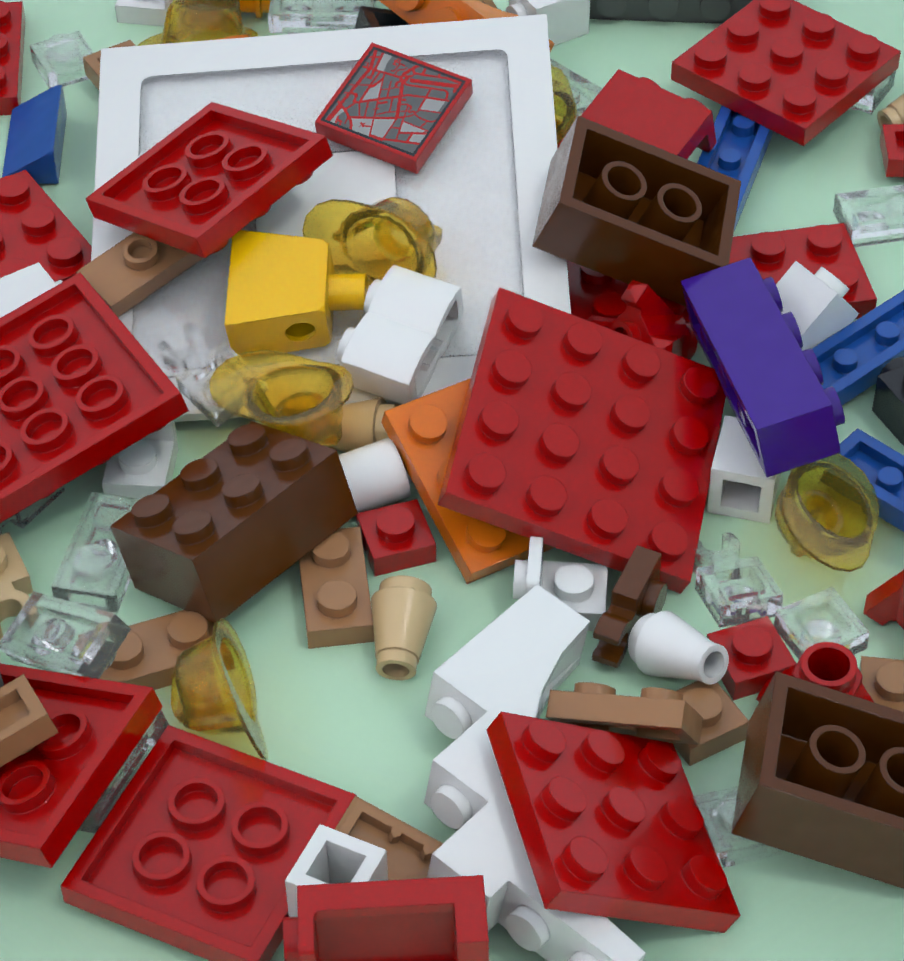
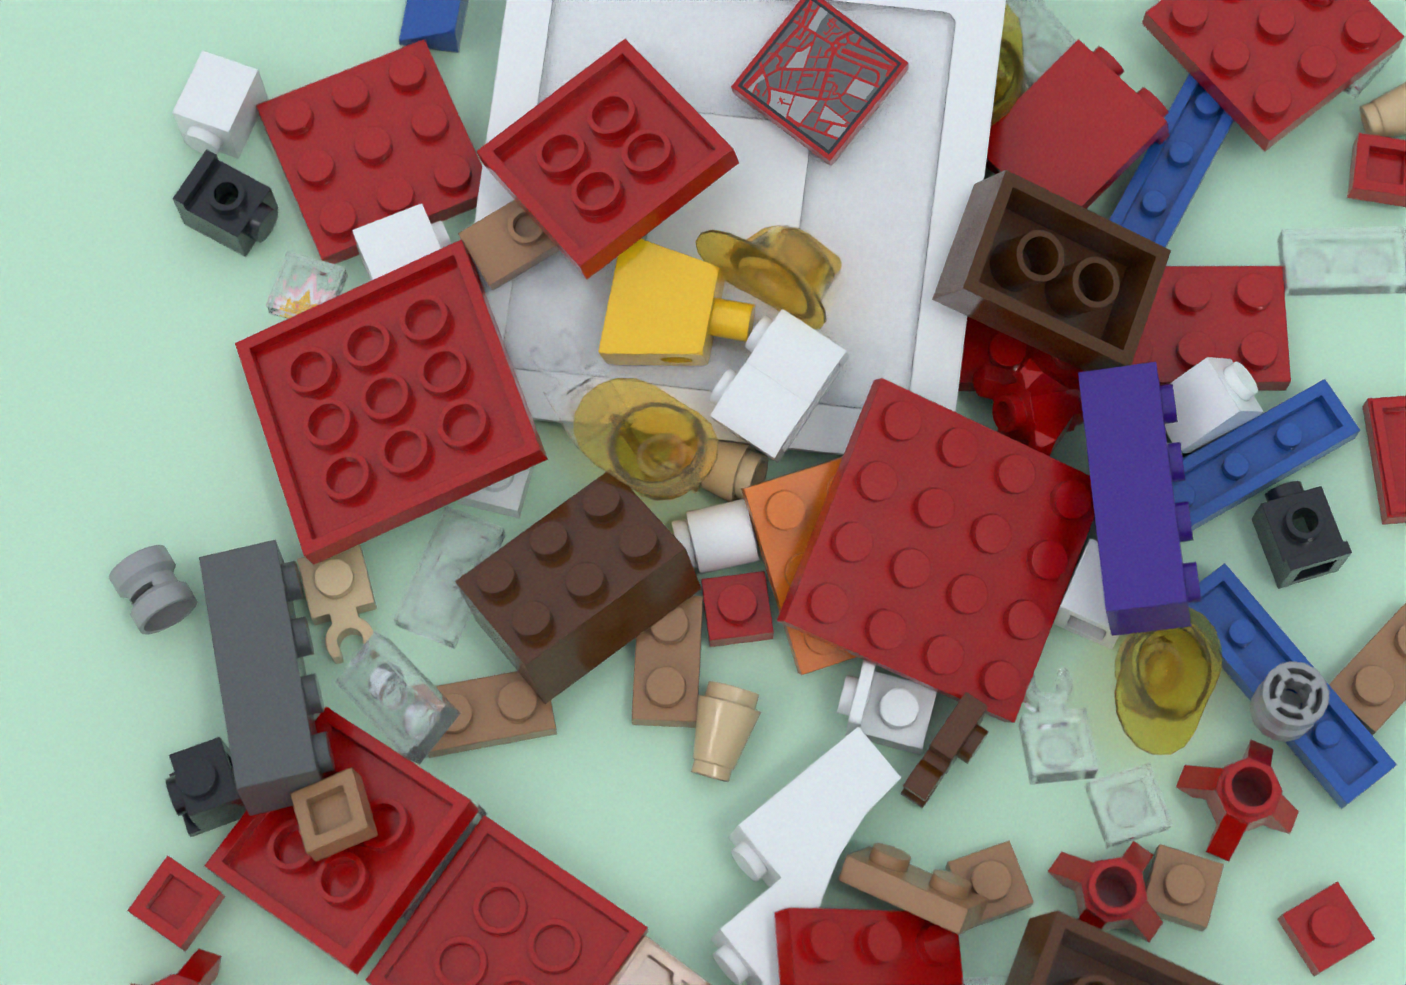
camera: 10 degrees right, 25 degrees up
(216, 688) = (535, 788): clear yellow piece -> none
(674, 649) = (978, 809): white cone -> none
(753, 654) = (1053, 819): red plate -> none

